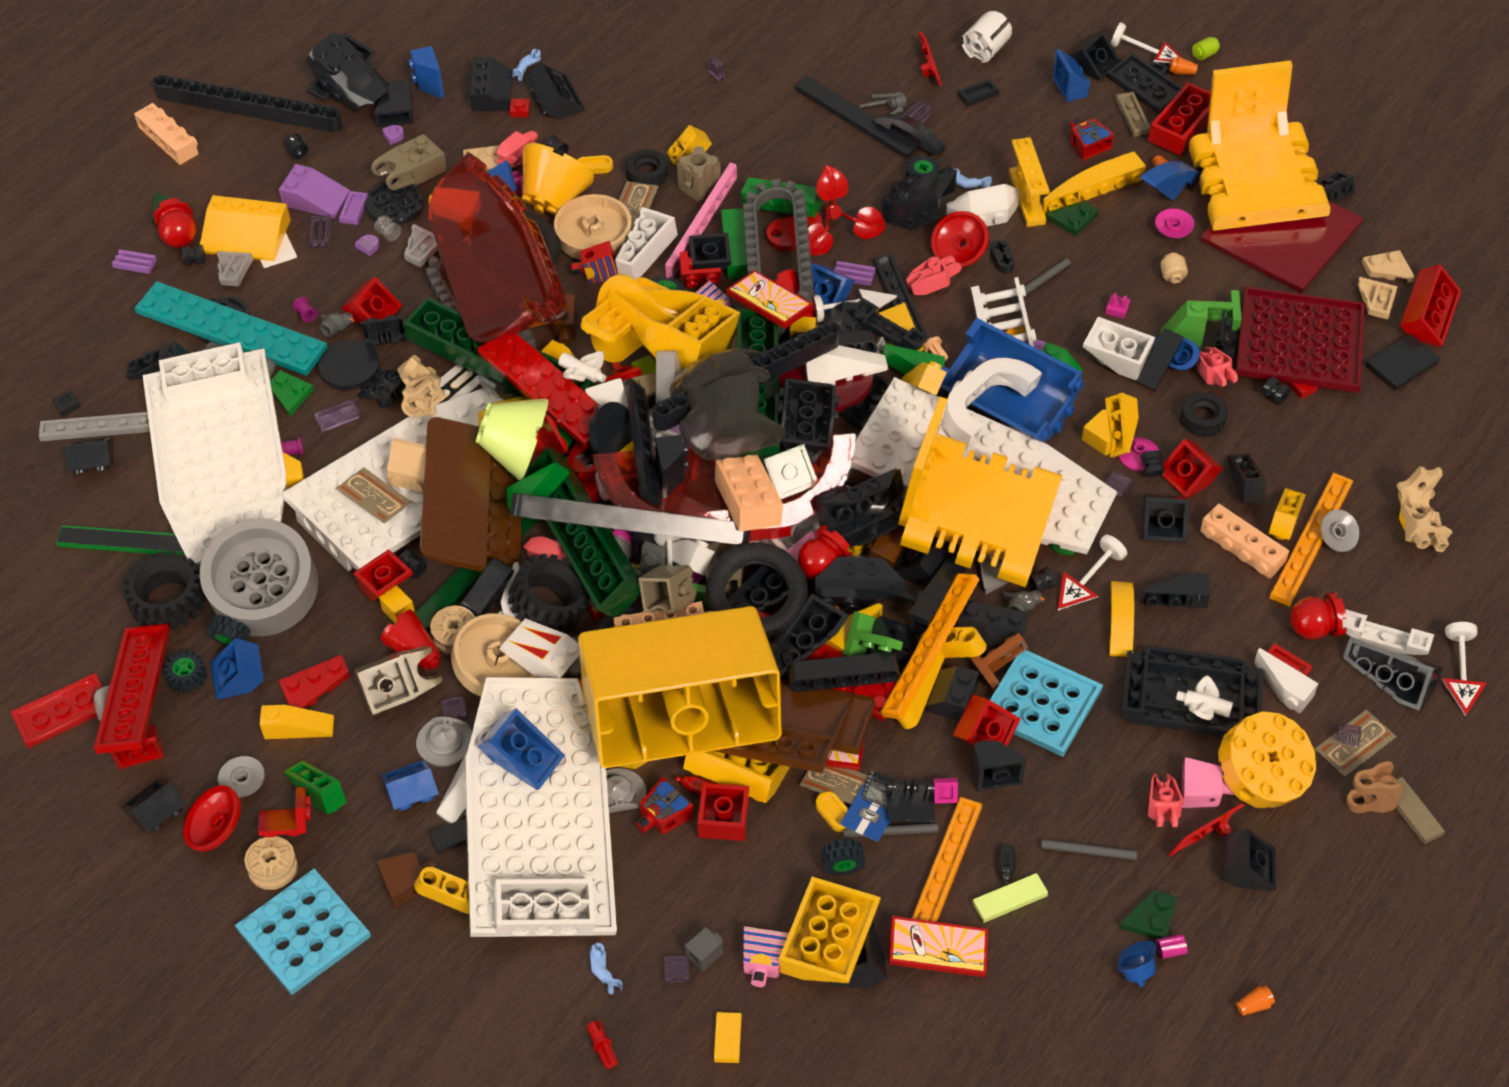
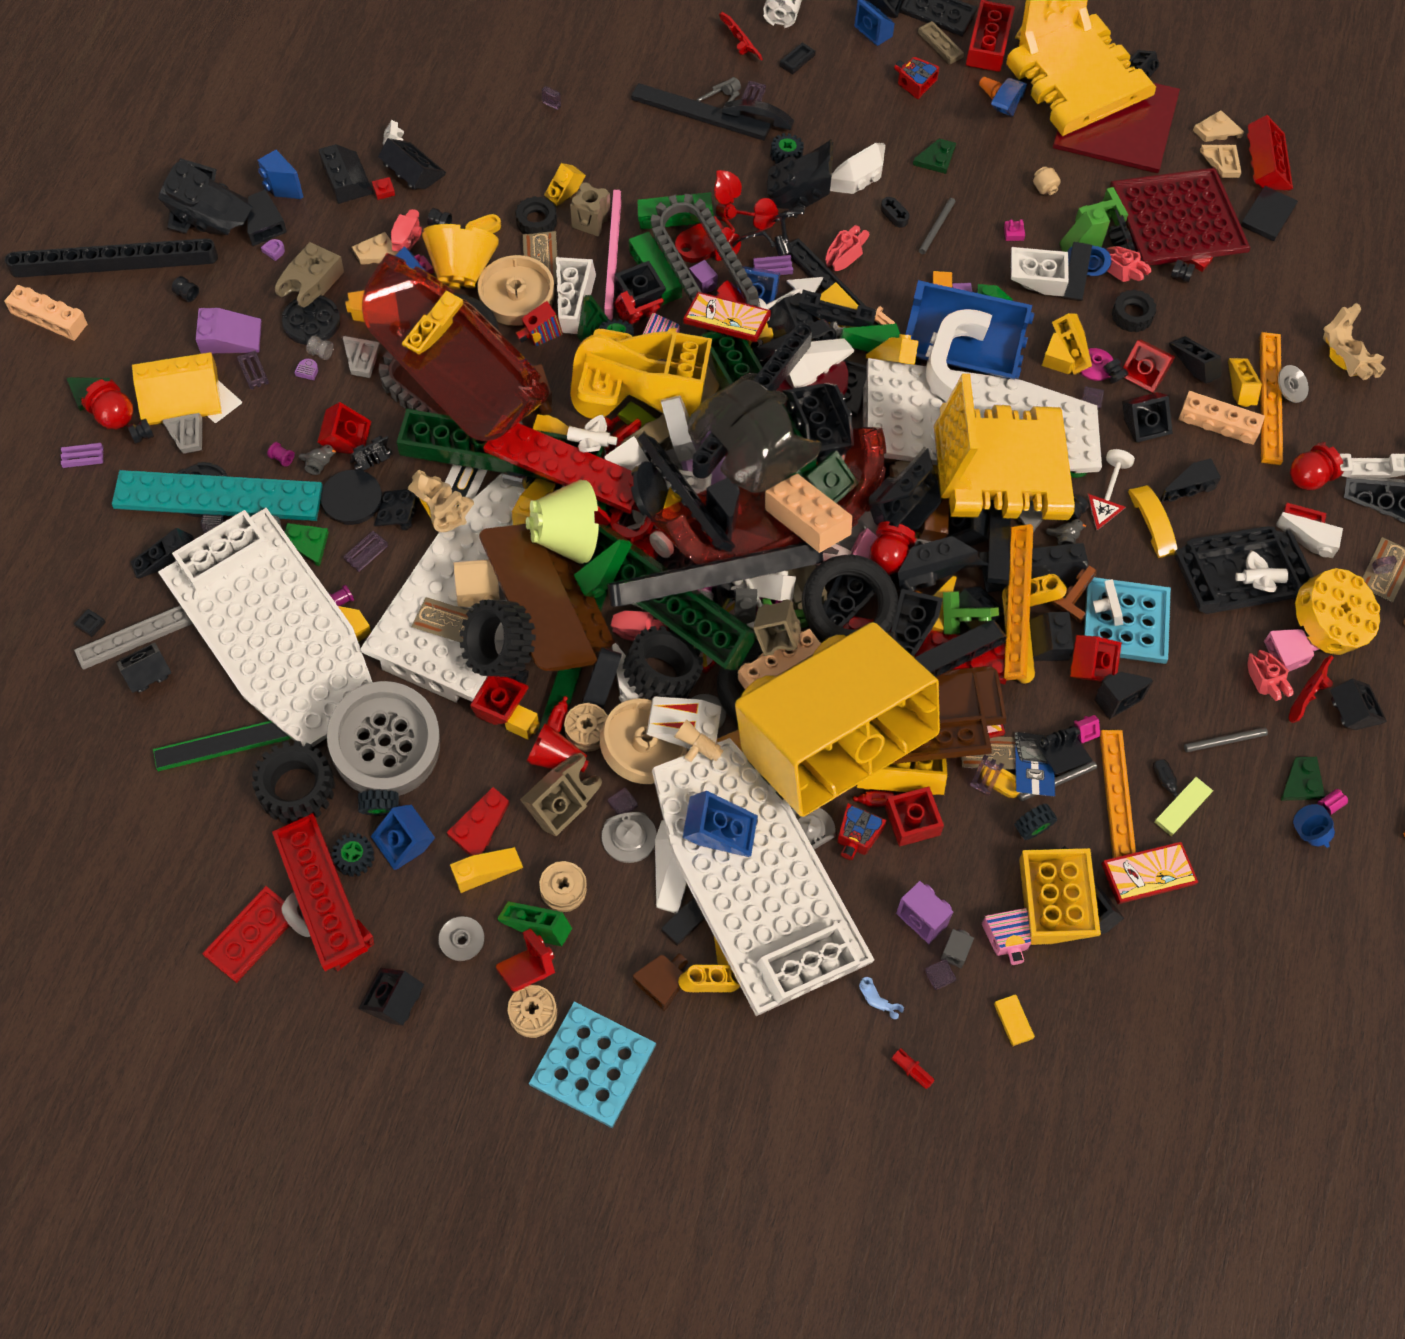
camera: 25 degrees left, 10 degrees up
(212, 818) = (449, 986): red dish -> none
(353, 208) = (273, 336): medium lavender tile -> none
(357, 763) = (568, 897): none -> tan wheel
(397, 515) = (480, 638): none -> black tyre
(410, 785) = (621, 889): slope -> none
(431, 609) = (558, 715): none -> red piece
(488, 231) = (433, 325): none -> yellow slope
(526, 62) = (366, 139): light blue arm -> none
(540, 668) = (699, 742): none -> tan piece
(553, 61) = (392, 131): none -> white tile
(649, 266) = (590, 318): none -> dark green wing
(686, 901) = (924, 911): none -> medium lavender brick
(777, 262) = (704, 276): none -> medium lavender brick
(817, 800) = (991, 765): none -> tile
(869, 251) = (781, 242): none -> black plant
(955, 230) = (855, 194): red dish -> none
(972, 182) = (846, 145): light blue arm -> none
(984, 313) = (906, 273): white fence -> none
(1027, 678) = (1110, 603): none -> white tile
(1030, 180) = (901, 132): yellow fence -> none
(1096, 181) = (944, 115): yellow slope -> none
(1174, 223) = (1027, 138): dark pink dish -> none

